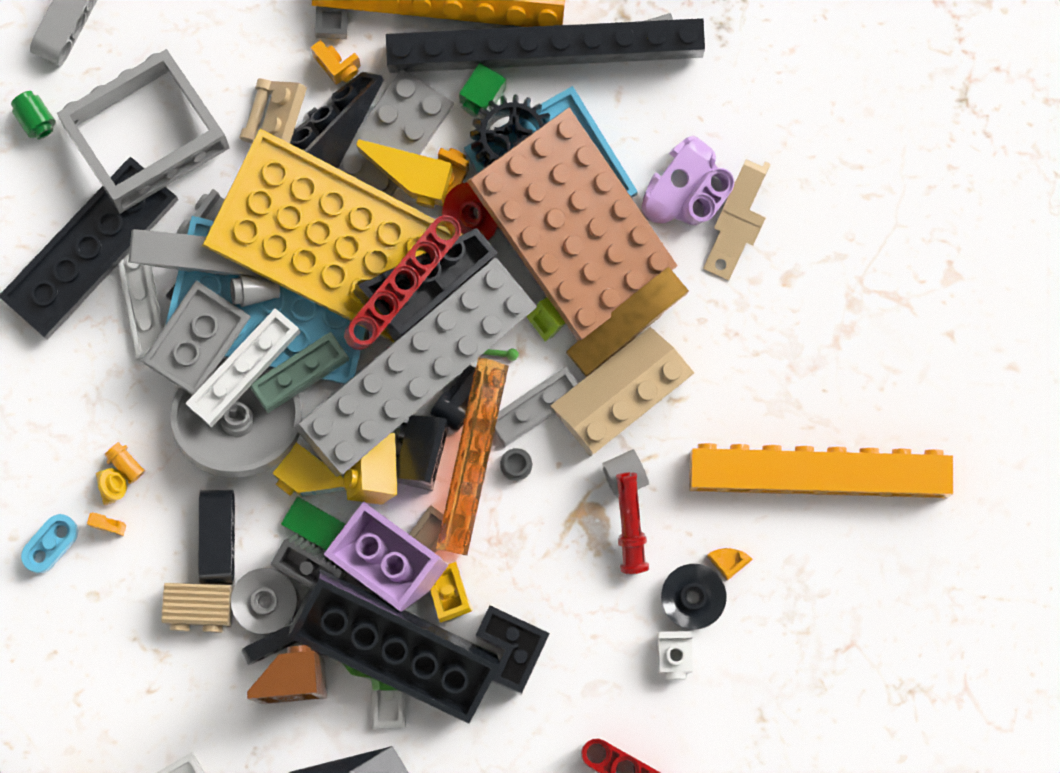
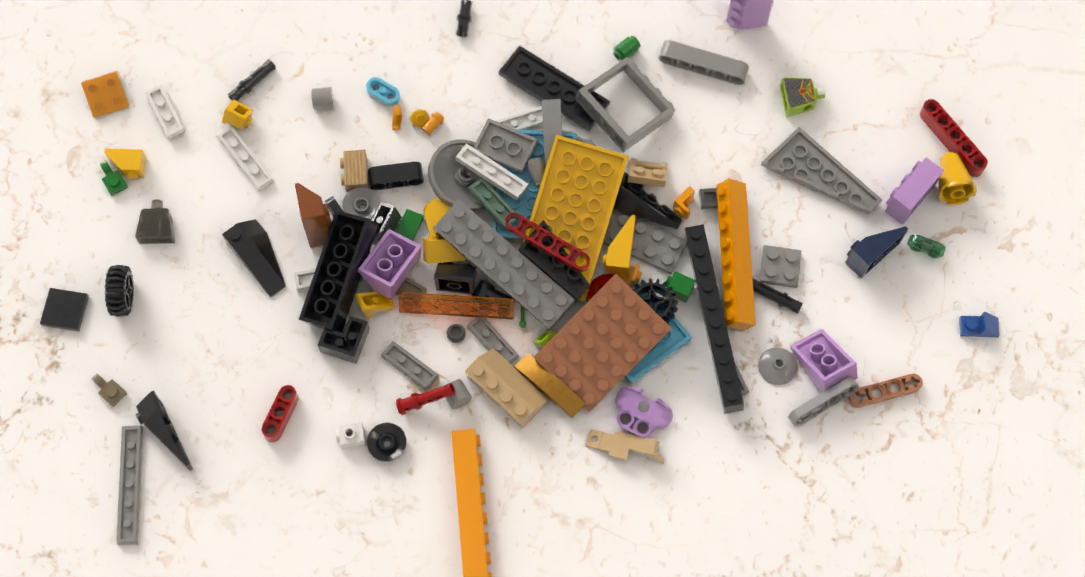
camera: 85 degrees right, 10 degrees down
(49, 651) = (322, 98): none -> light grey piece
(562, 547) = (409, 365): none -> light grey tile
(729, 561) = (411, 462): light orange tile -> none

